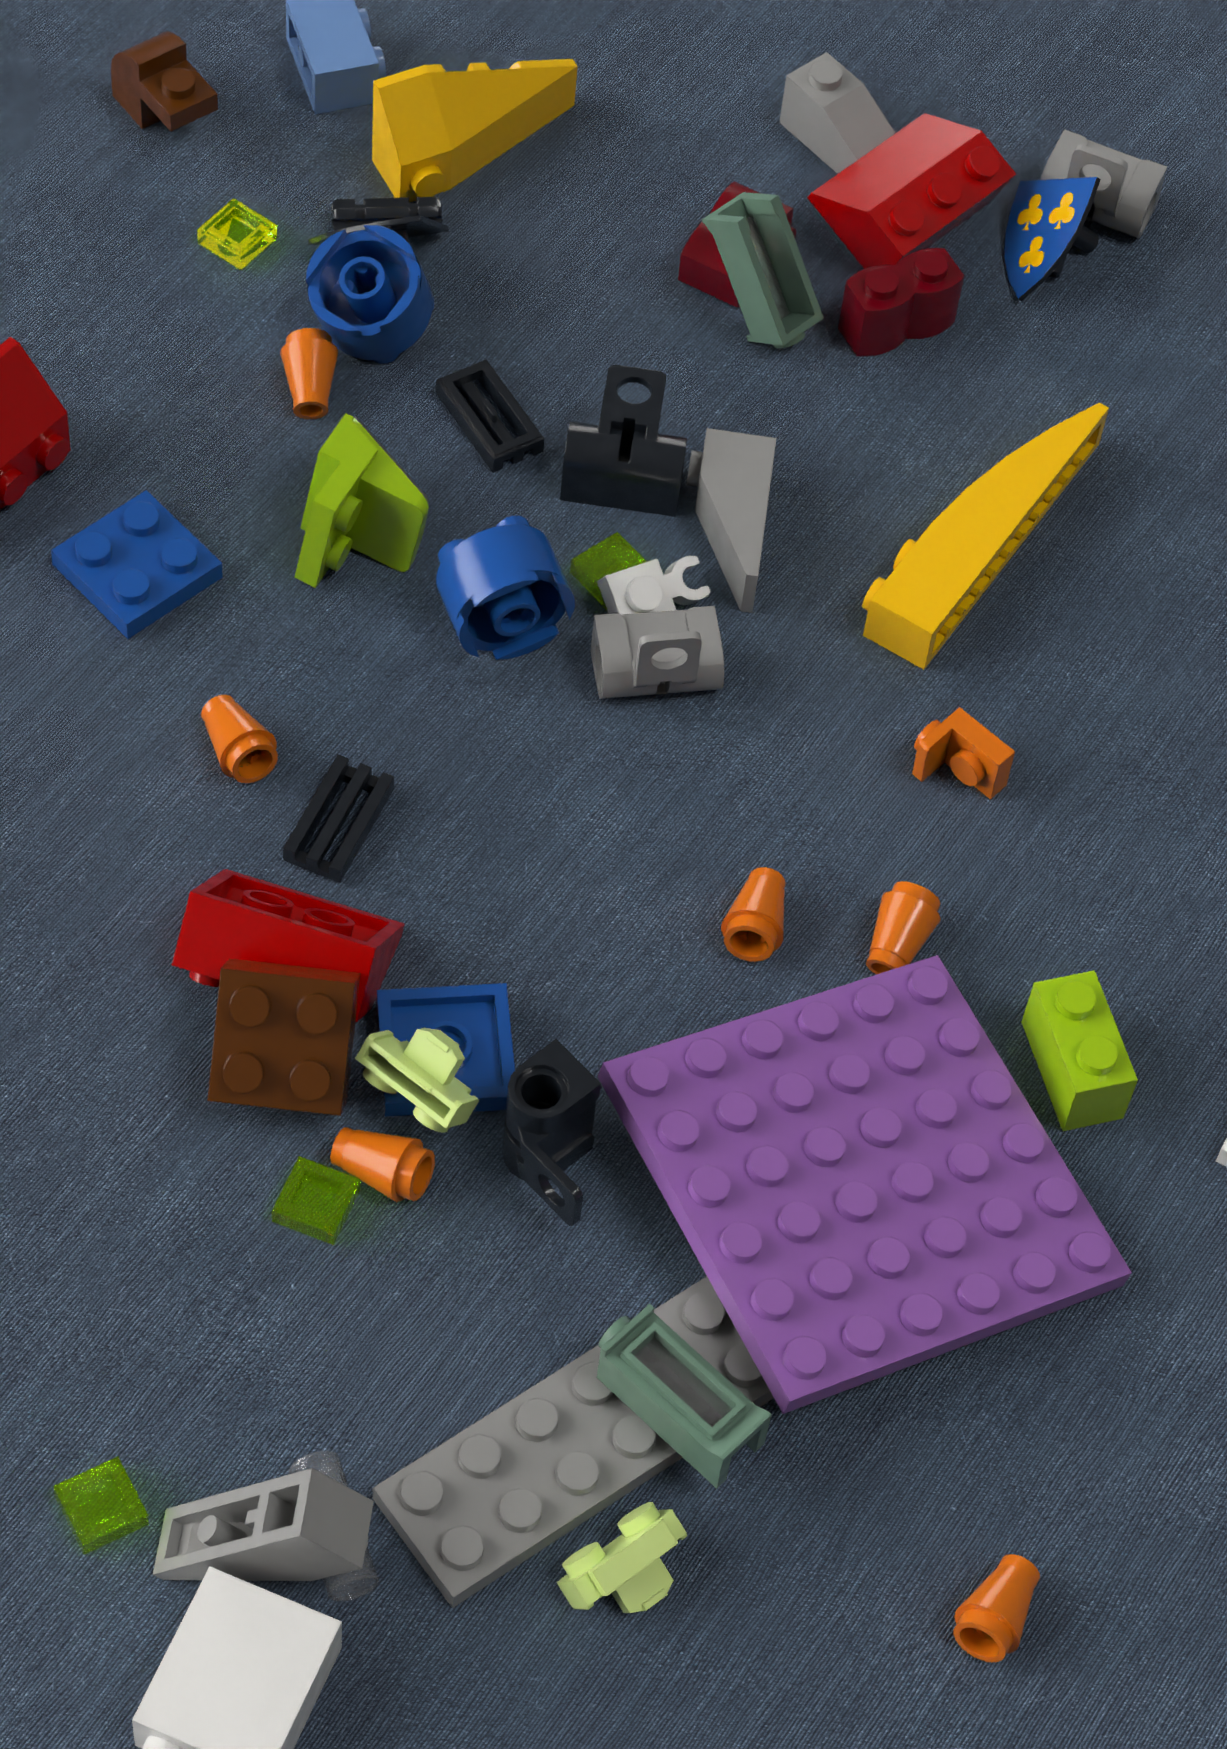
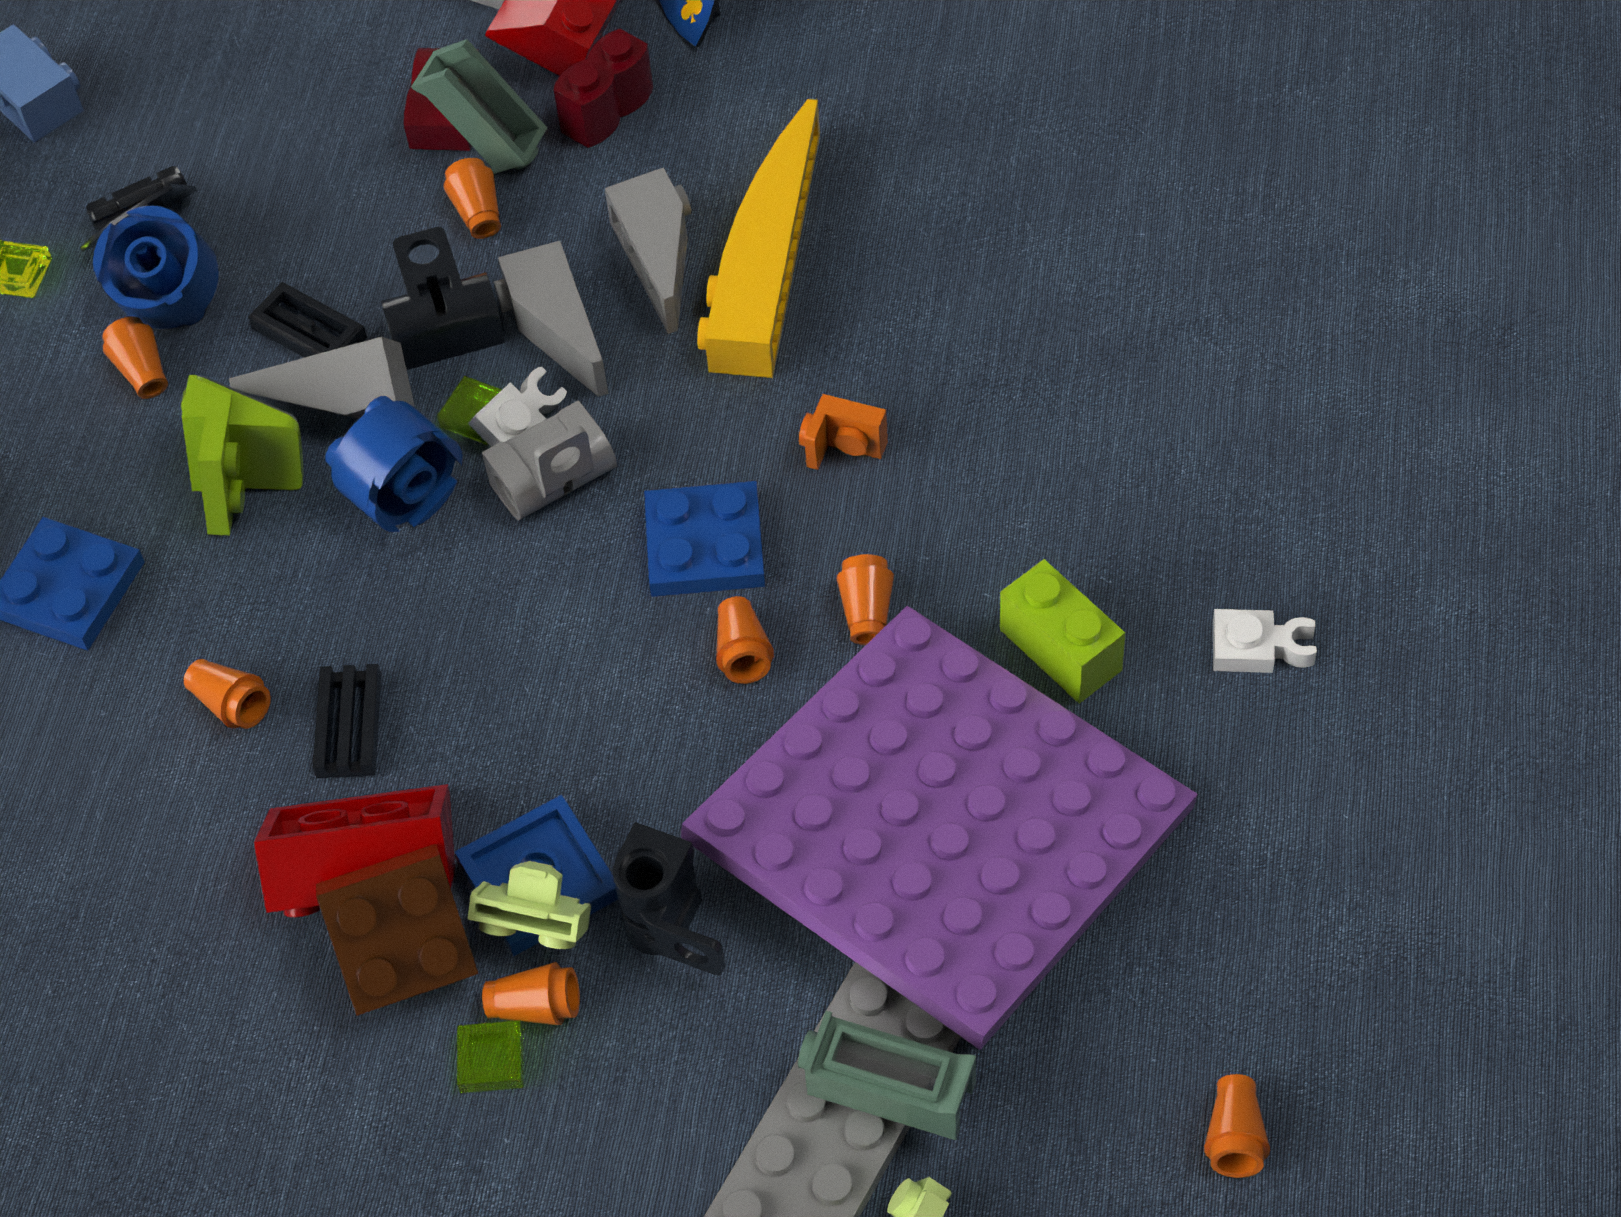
camera: 15 degrees left, 0 degrees up
(448, 125) = (154, 102): yellow wedge -> none
(490, 480) = (335, 380): none -> light grey slope
(716, 355) = (473, 194): none -> orange cone
(772, 798) = (704, 538): none -> blue plate
(876, 475) = (652, 230): none -> light grey slope

